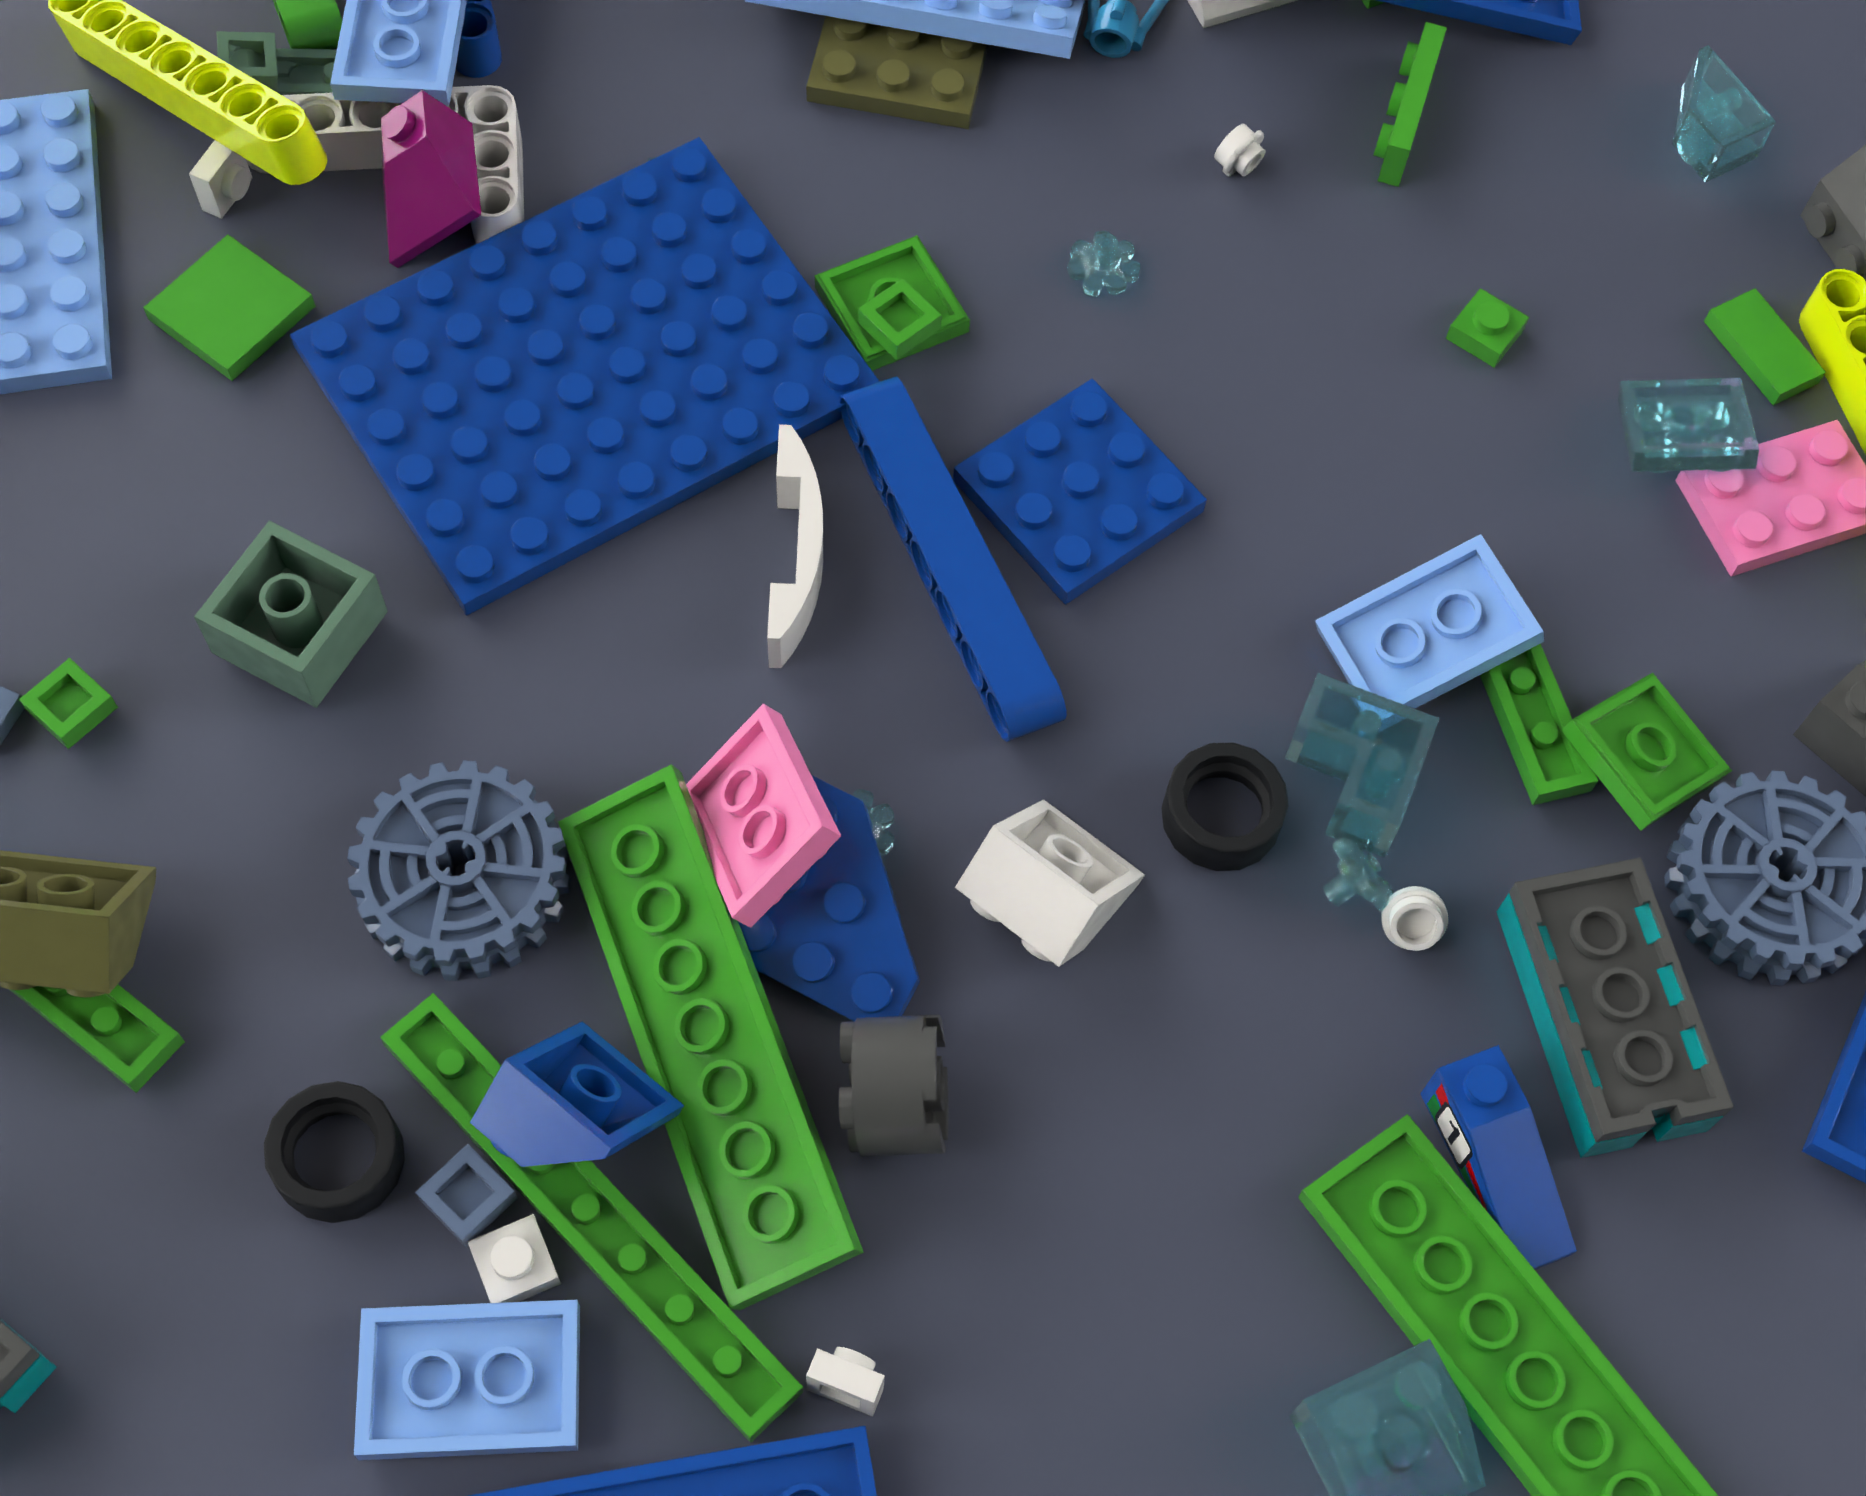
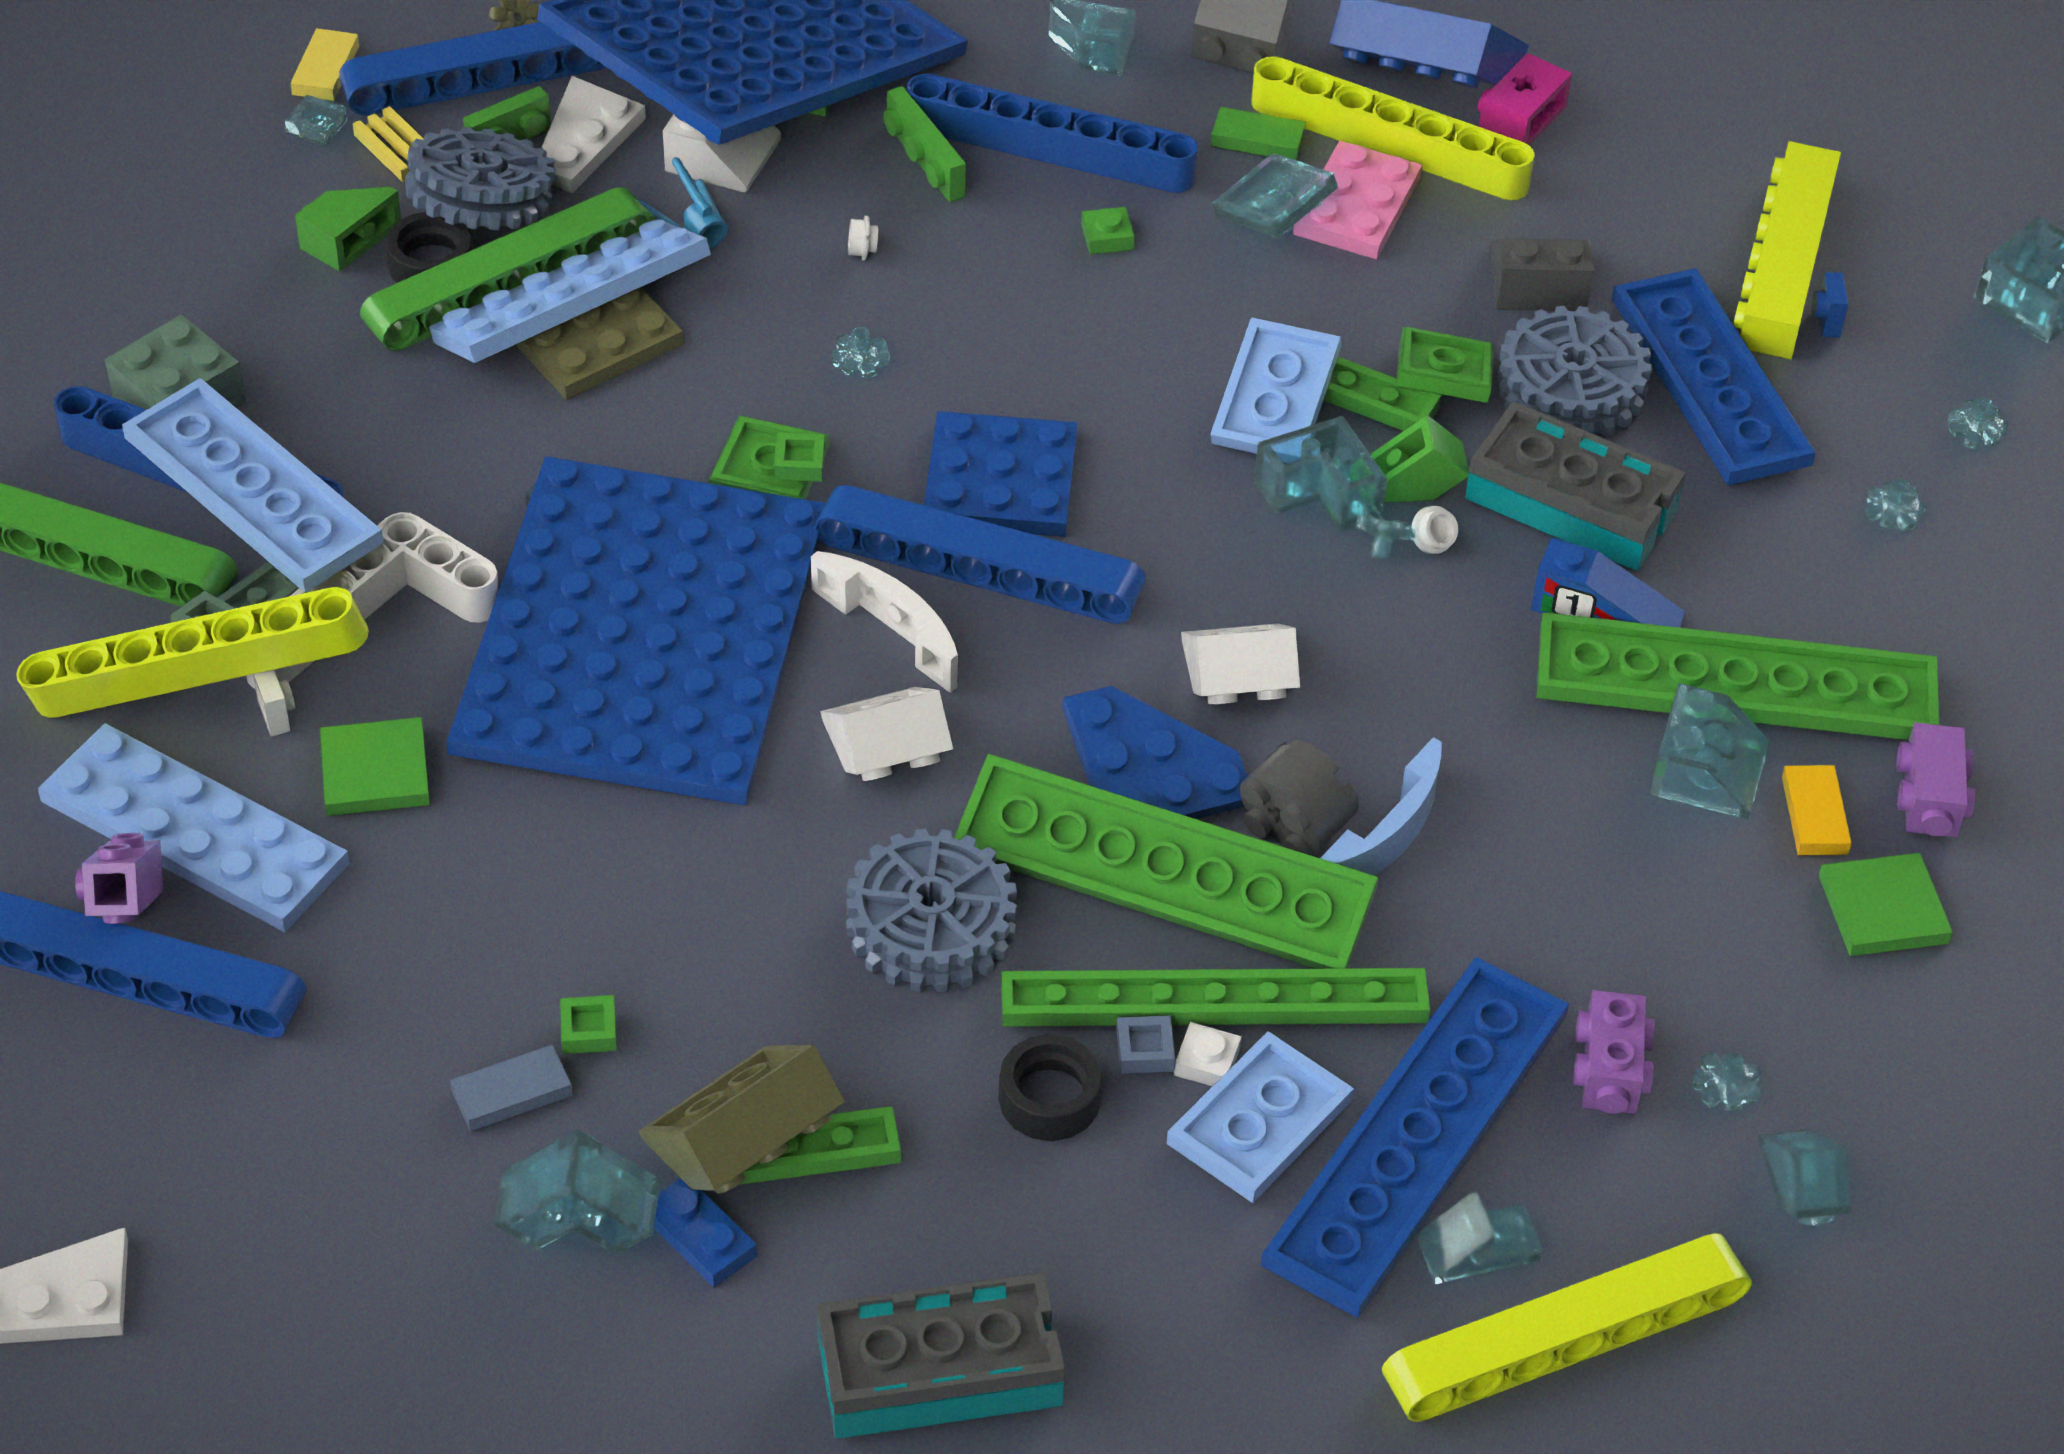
camera: 45 degrees left, 15 degrees down
(292, 613) = (665, 866): sand green brick -> none
(426, 175) = (417, 599): magenta slope -> none
(570, 1101) = (1155, 943): blue slope -> none
(646, 655) = (889, 731): none -> white slope
(760, 815) = (1072, 730): bright pink plate -> none
(846, 1379) = (1441, 949): white plate -> none
(1058, 1178) = (1400, 825): none -> light blue slope
(1237, 764) = (1279, 529): black tyre -> none
(1477, 832) = (1421, 462): none -> bright green slope
(1550, 189) = (1057, 133): none -> blue beam

